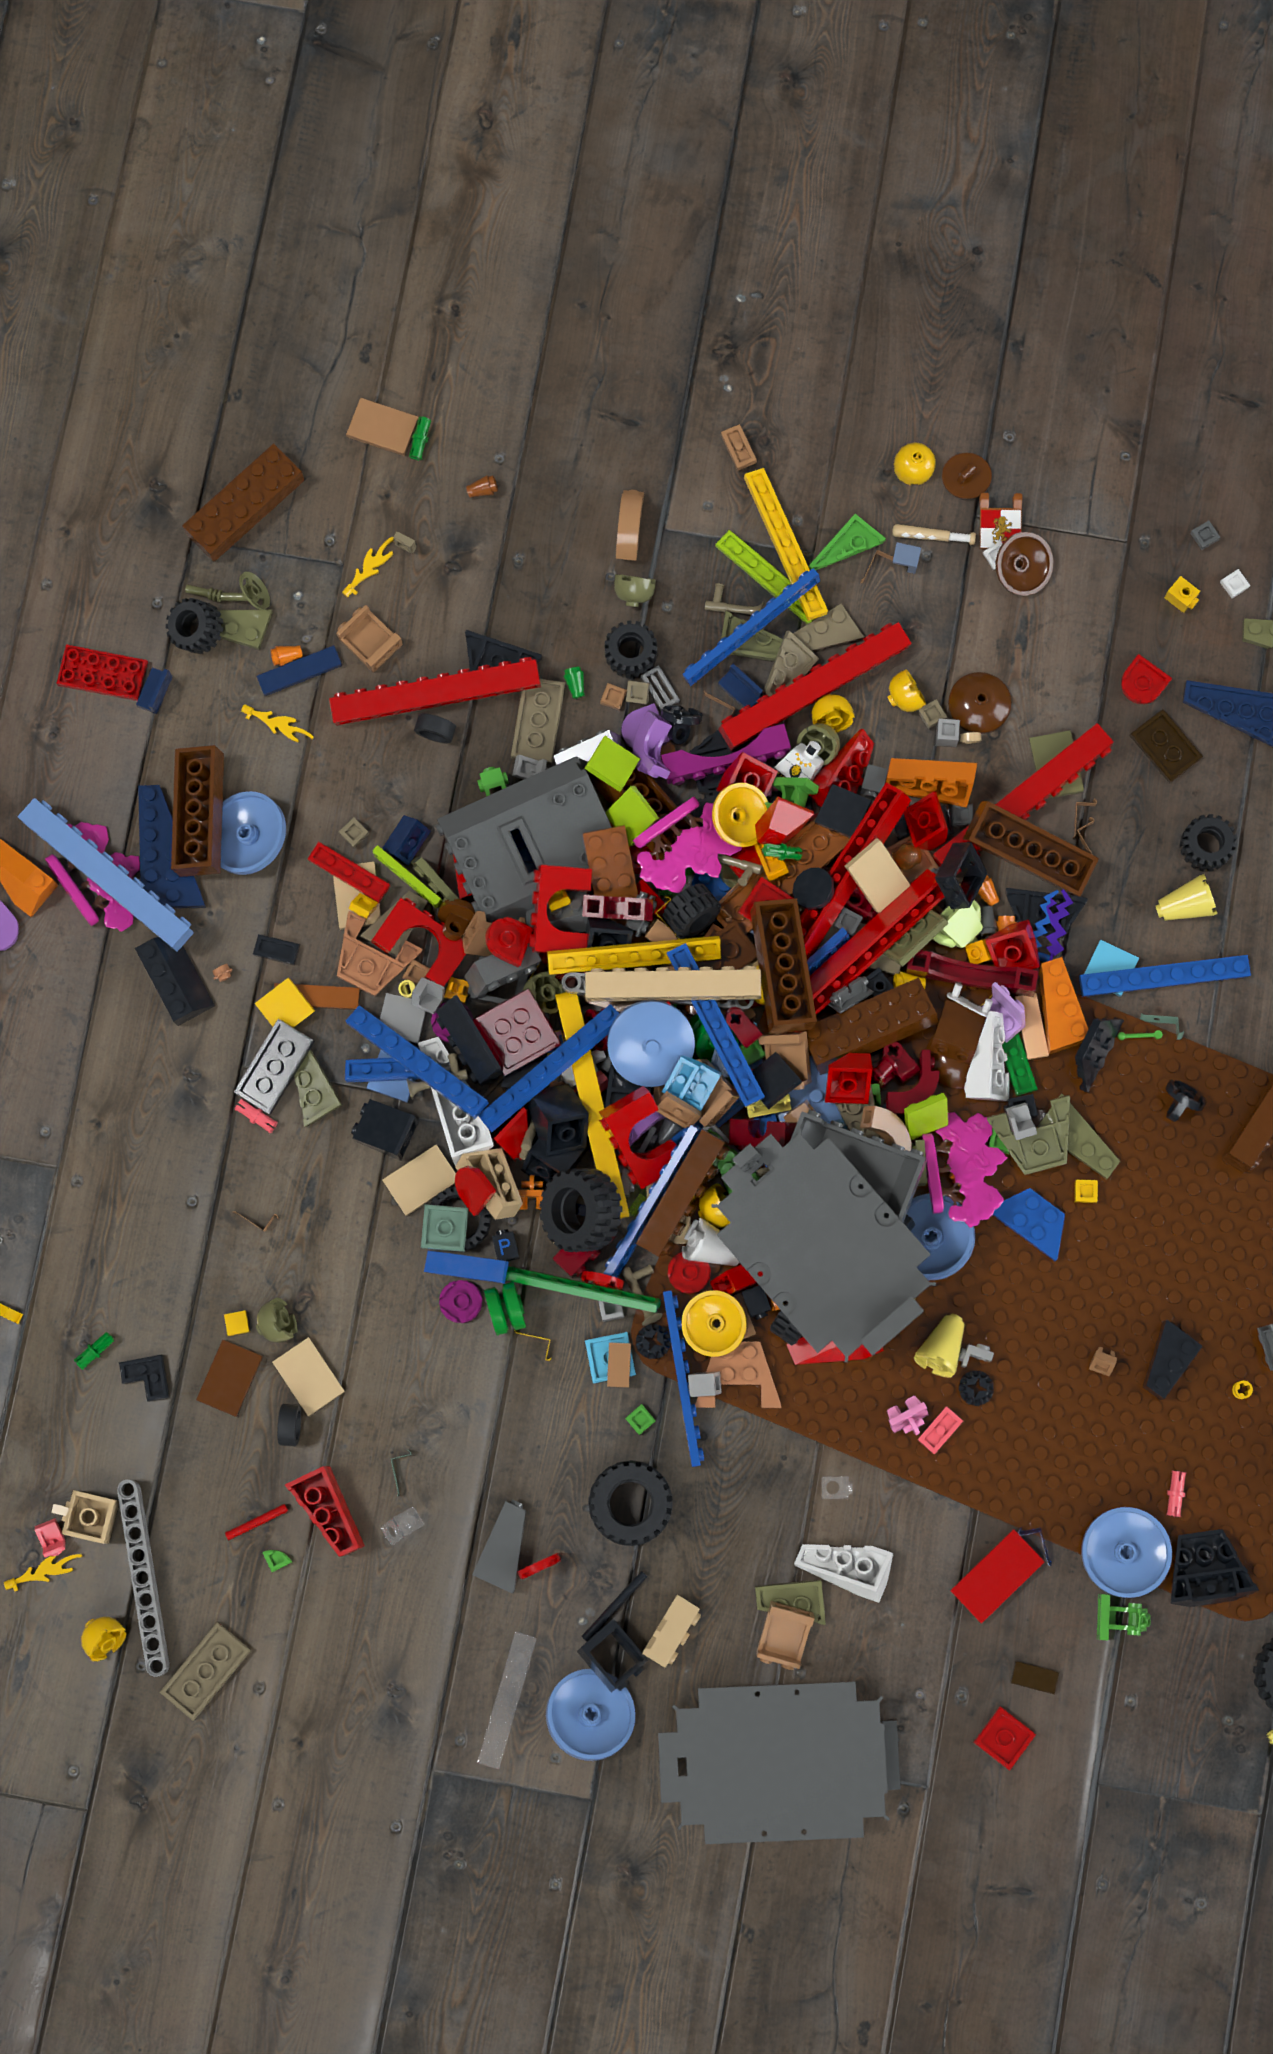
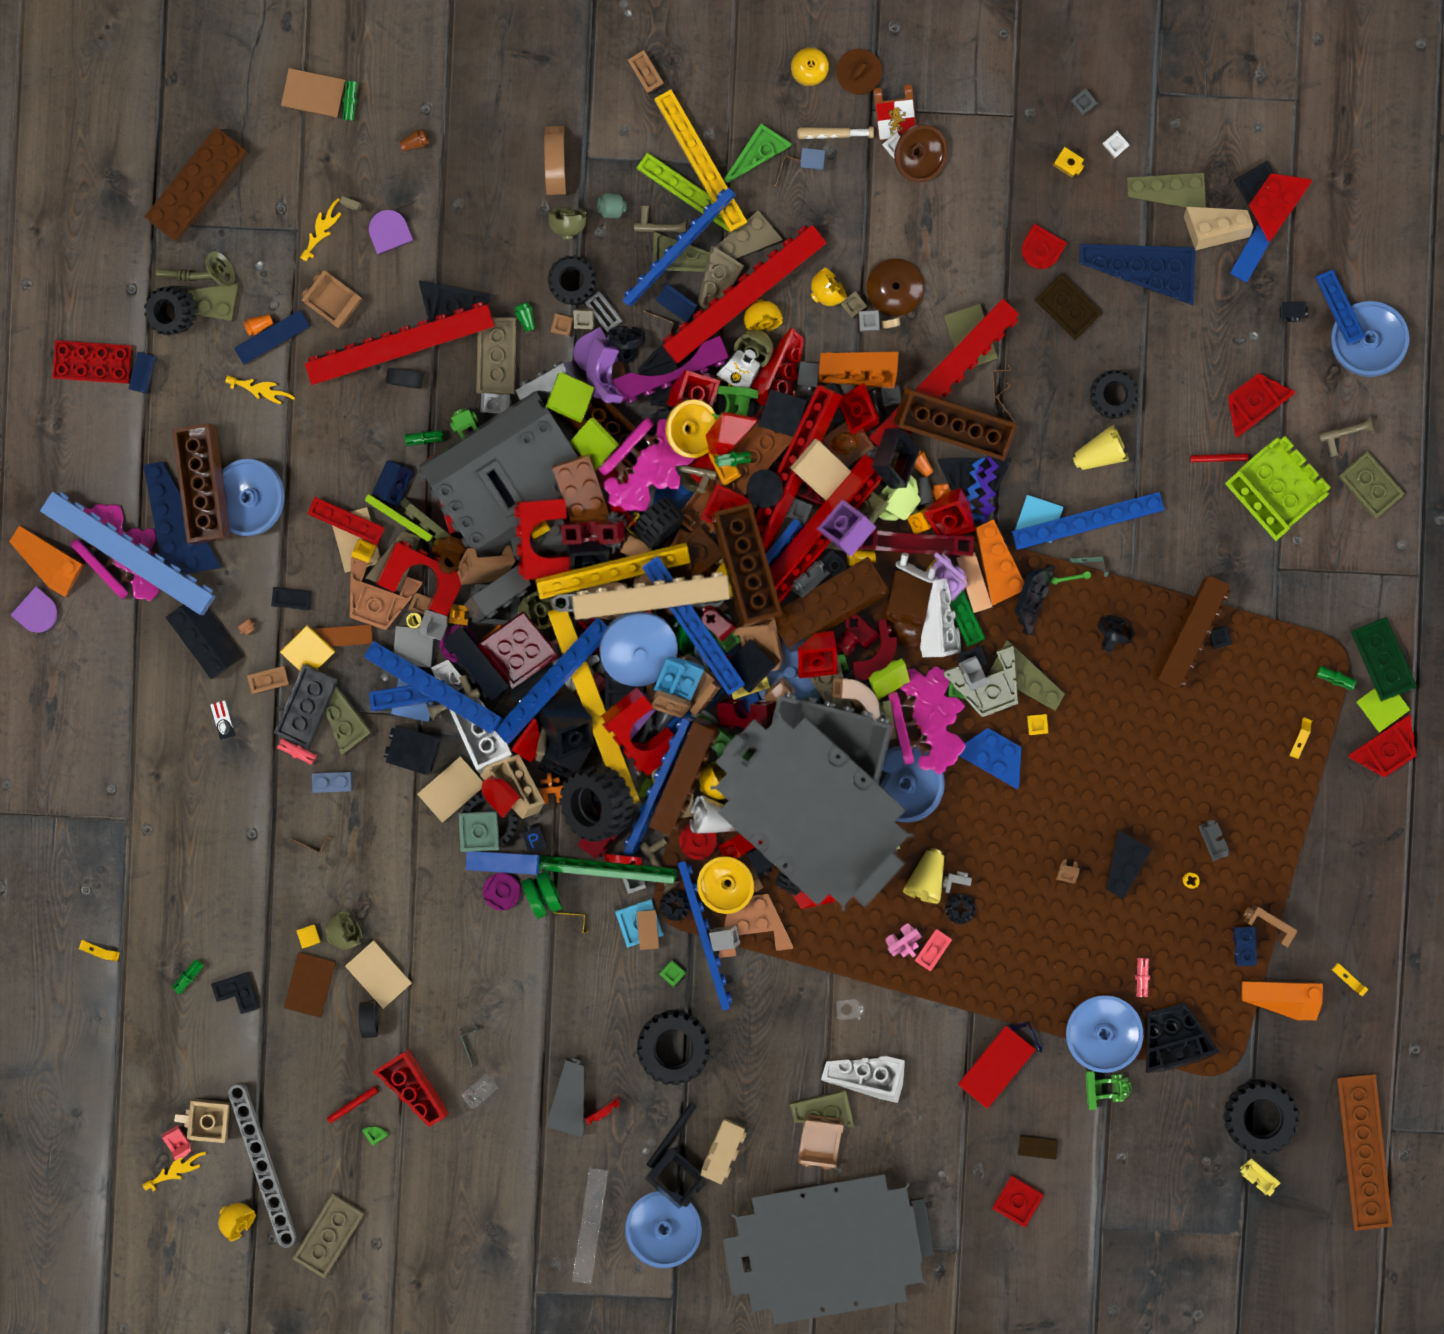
camera: 15 degrees left, 10 degrees up
(180, 1071) = (222, 720): none -> sticker
(236, 1033) = (268, 680): none -> medium nougat plate
(290, 1153) = (332, 782): none -> sand blue brick
(353, 832) = (345, 483): dark tan plate -> none
(441, 576) = (389, 231): none -> medium lavender tile
(447, 795) = (423, 437): none -> green axle
(508, 940) = (499, 571): red tile -> none
(683, 578) = (611, 205): none -> sand green head
(899, 940) = (846, 528): none -> medium lavender brick

